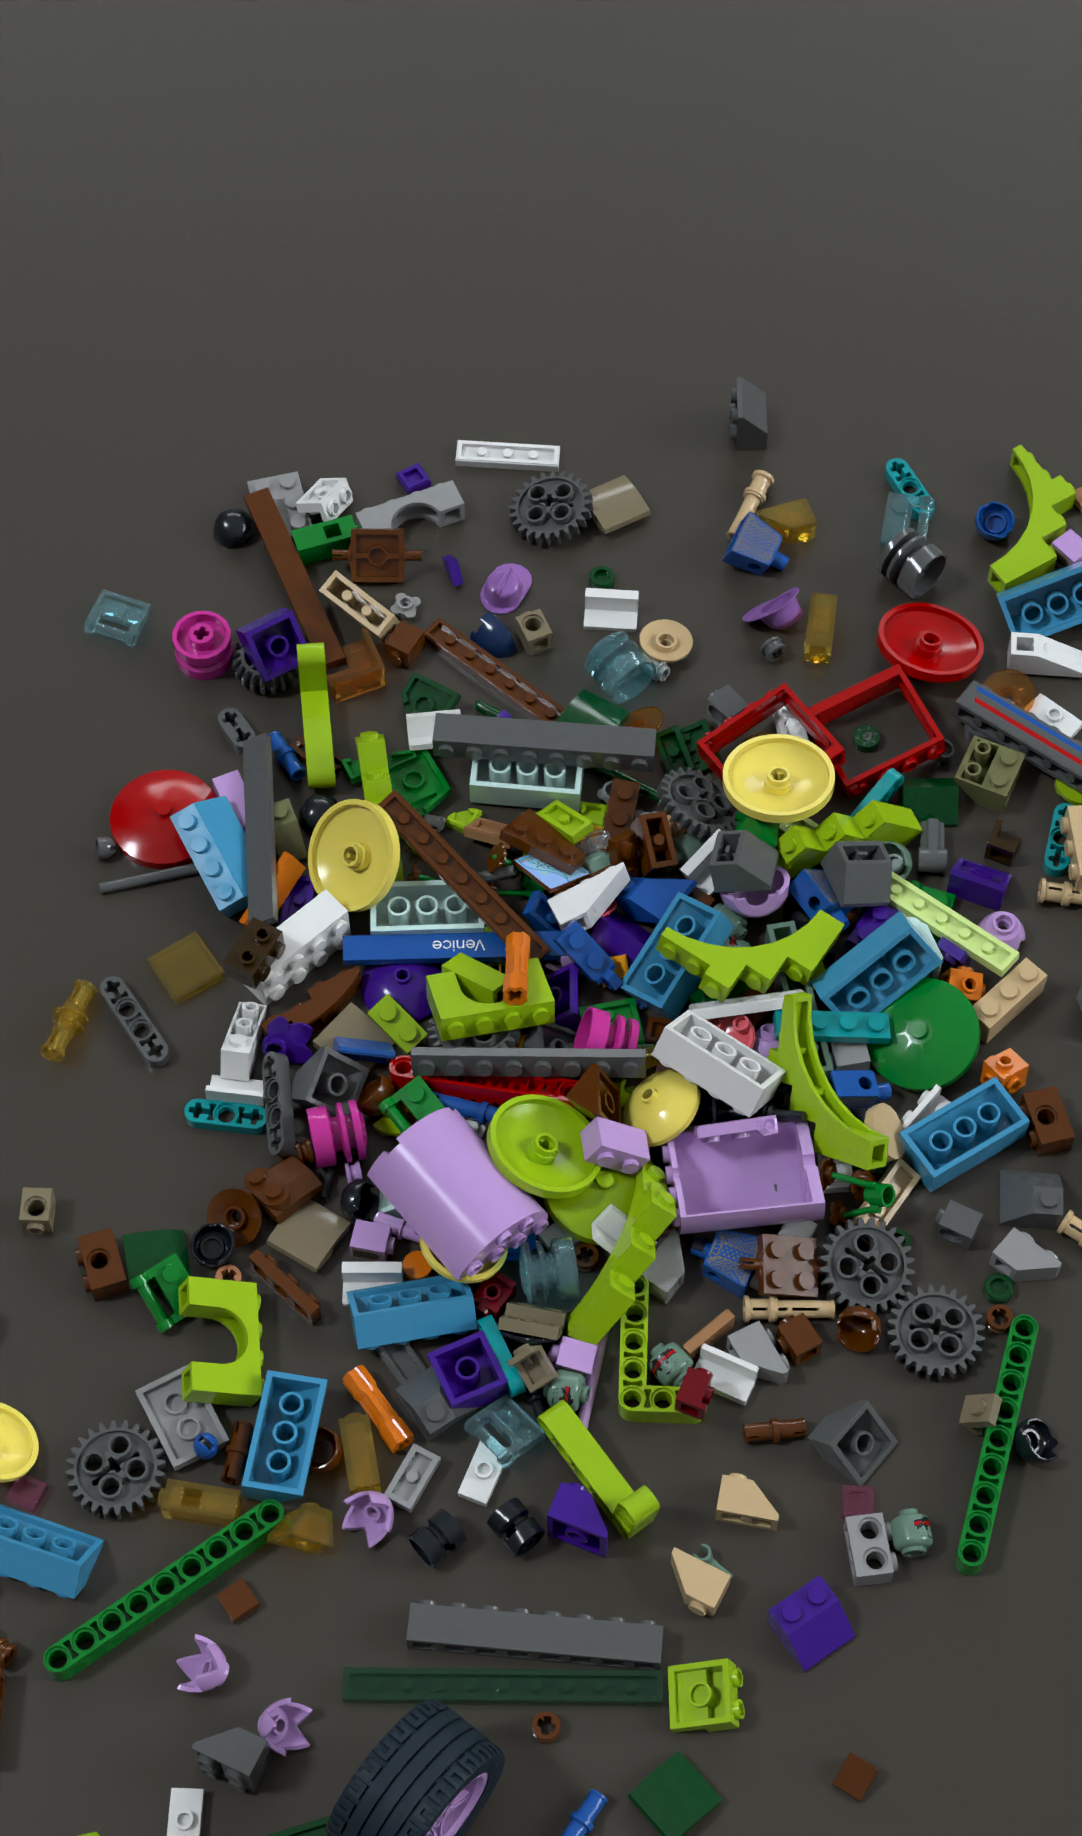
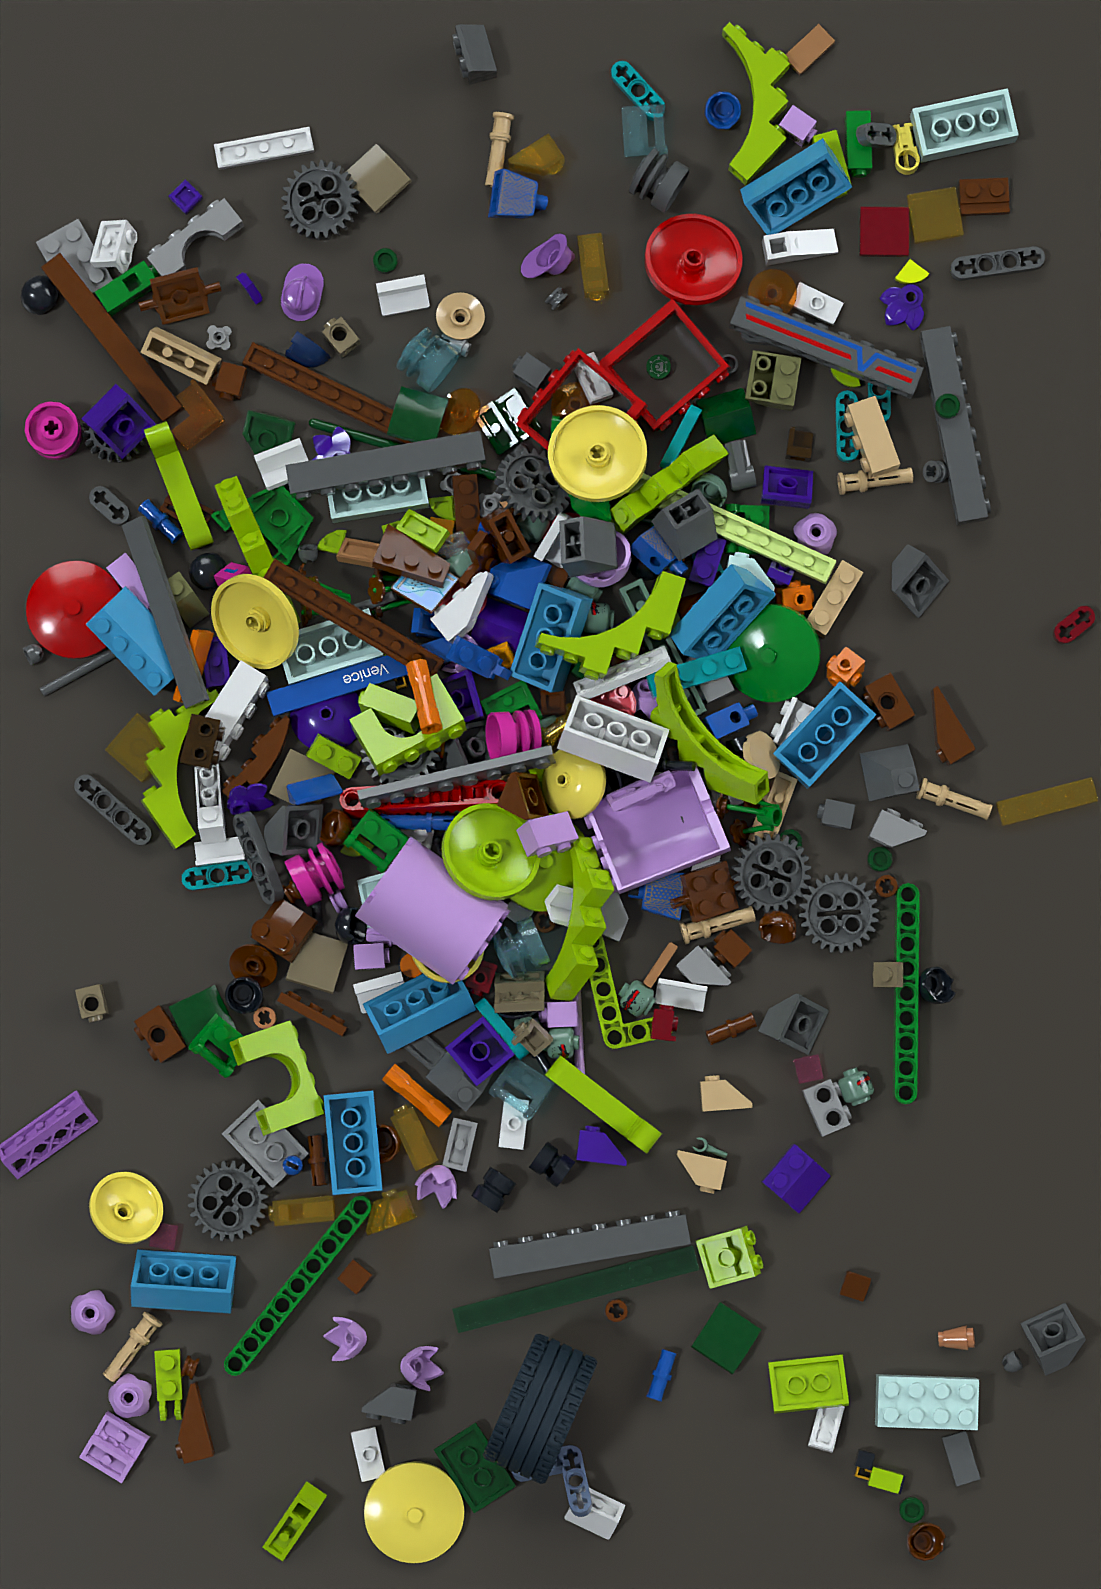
camera: 15 degrees left, 25 degrees up
(68, 1020) = (59, 827): clear yellow piece -> none
(192, 1019) = (164, 803): none -> lime arch

